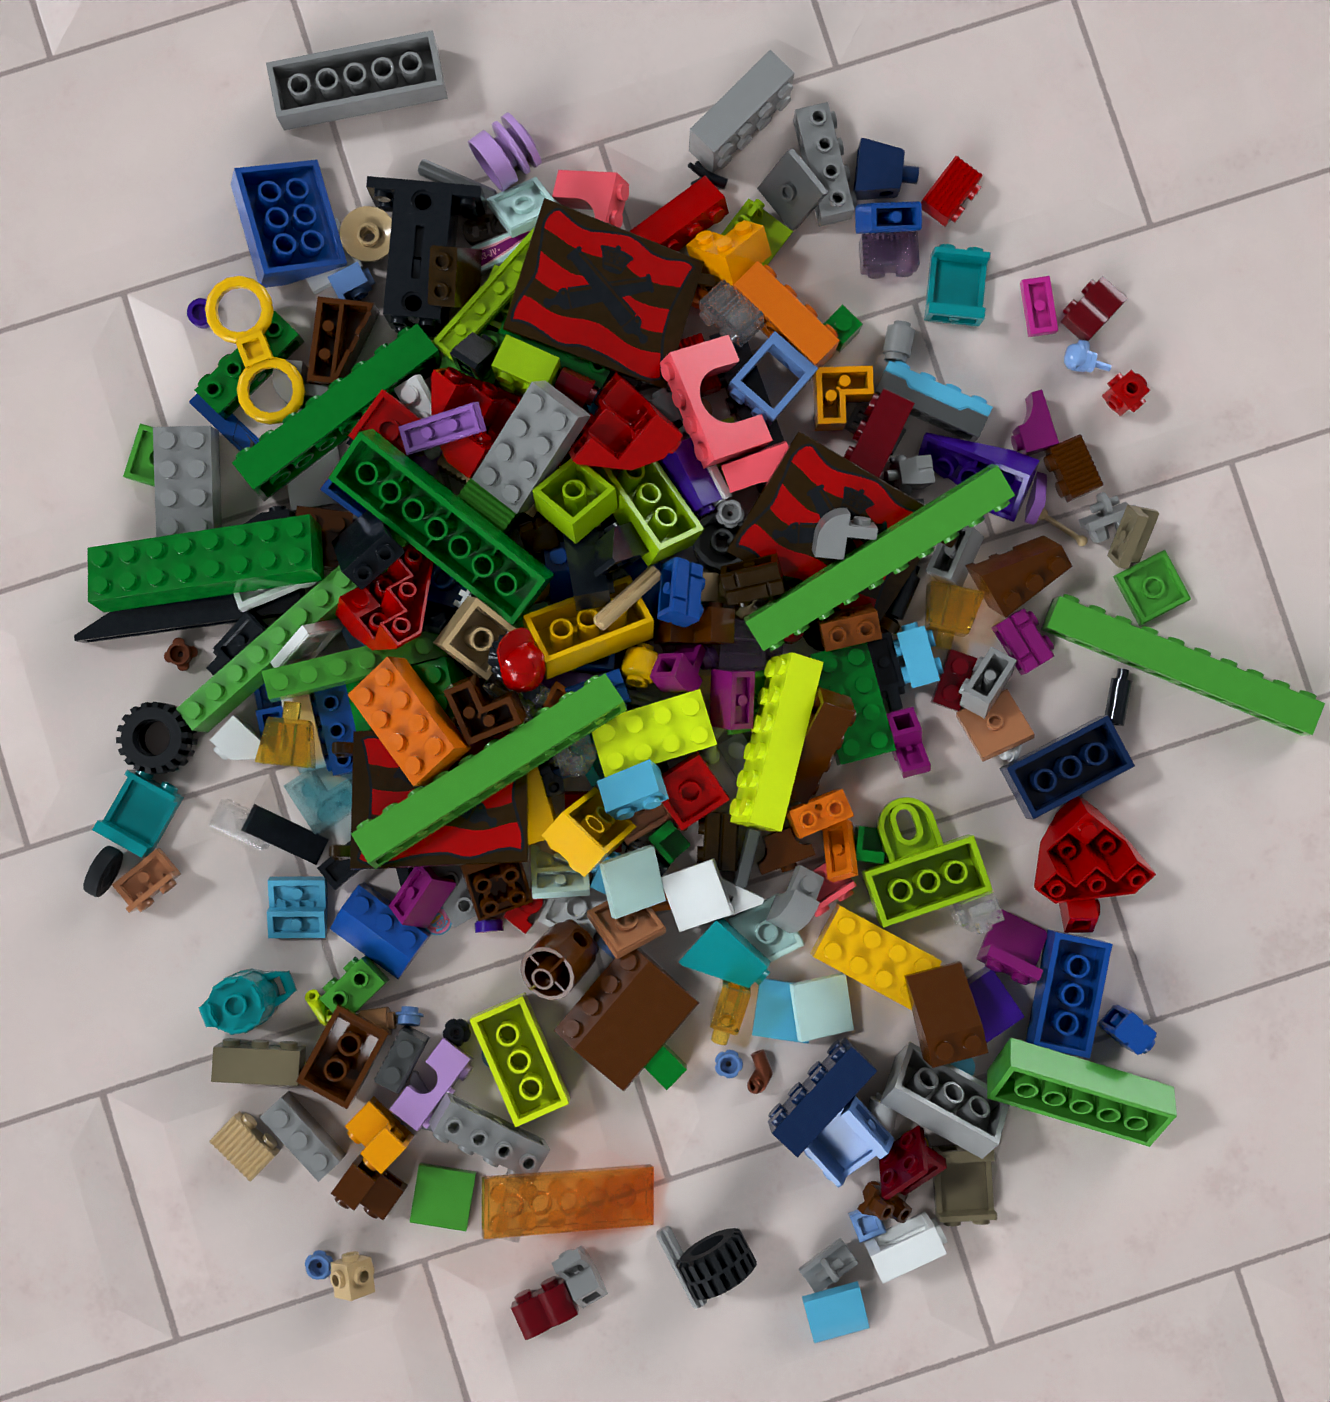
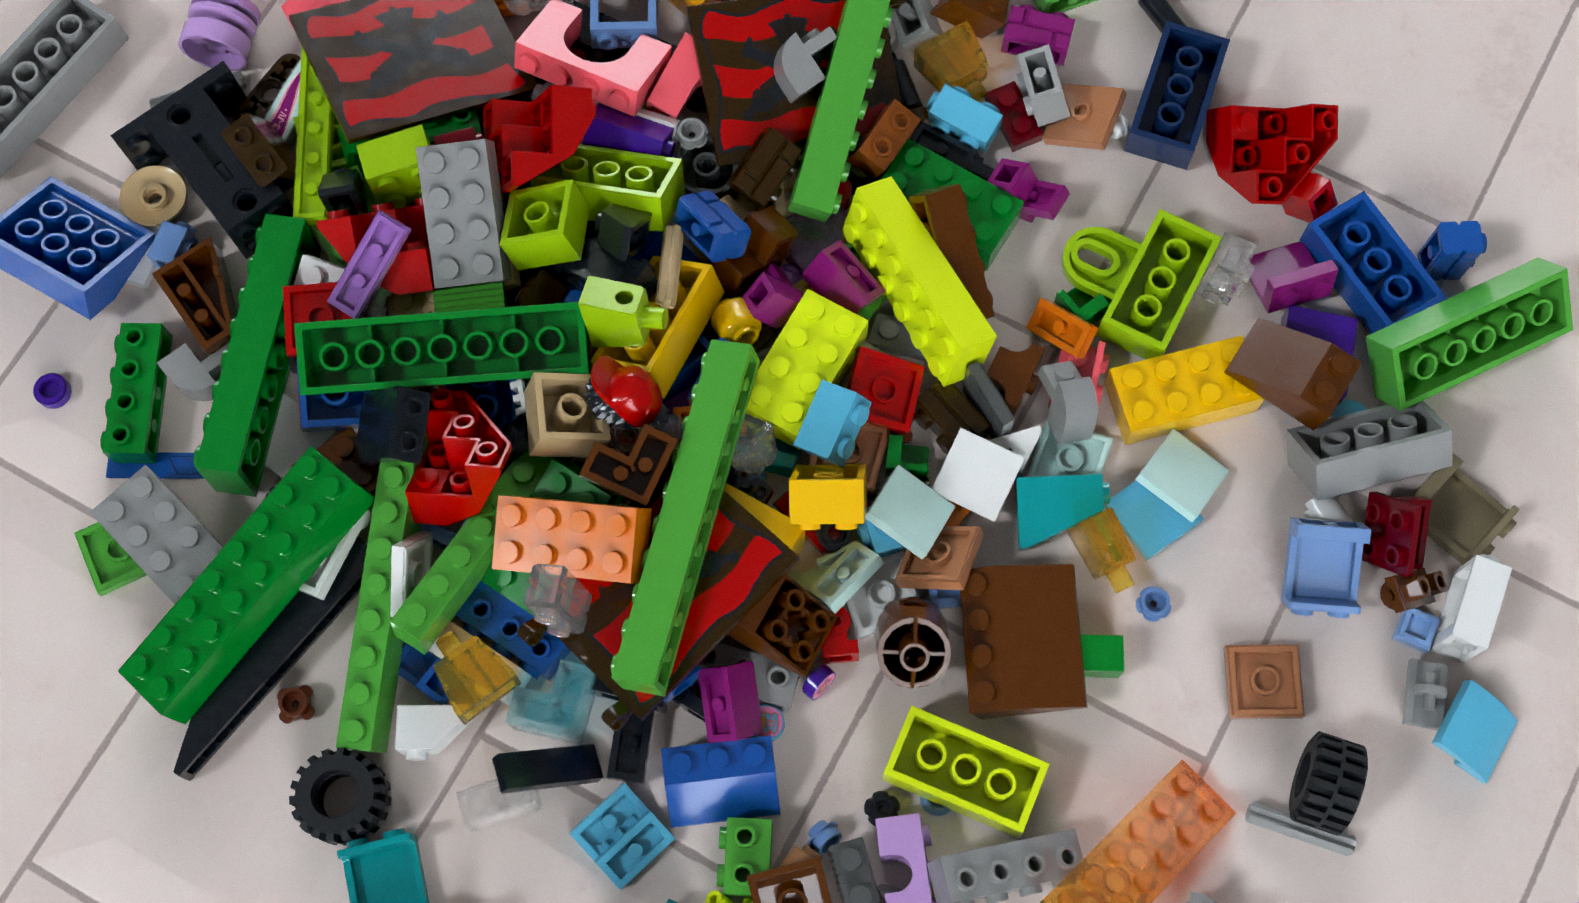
camera: 35 degrees left, 15 degrees down
(236, 639) = (338, 635): black hinge -> none
(254, 349) = (130, 366): yellow bar -> none
(364, 753) = (557, 600): none -> clear brick
(519, 206) = (273, 62): light aqua tile -> none
(562, 607) = (618, 313): none -> lime torso
(745, 1169) = (1263, 682): none -> nougat plate
(762, 1073) = (1191, 585): copper arm -> none
(820, 1096) = (1261, 547): dark blue brick -> none
(830, 809) = (1015, 305): orange window -> none

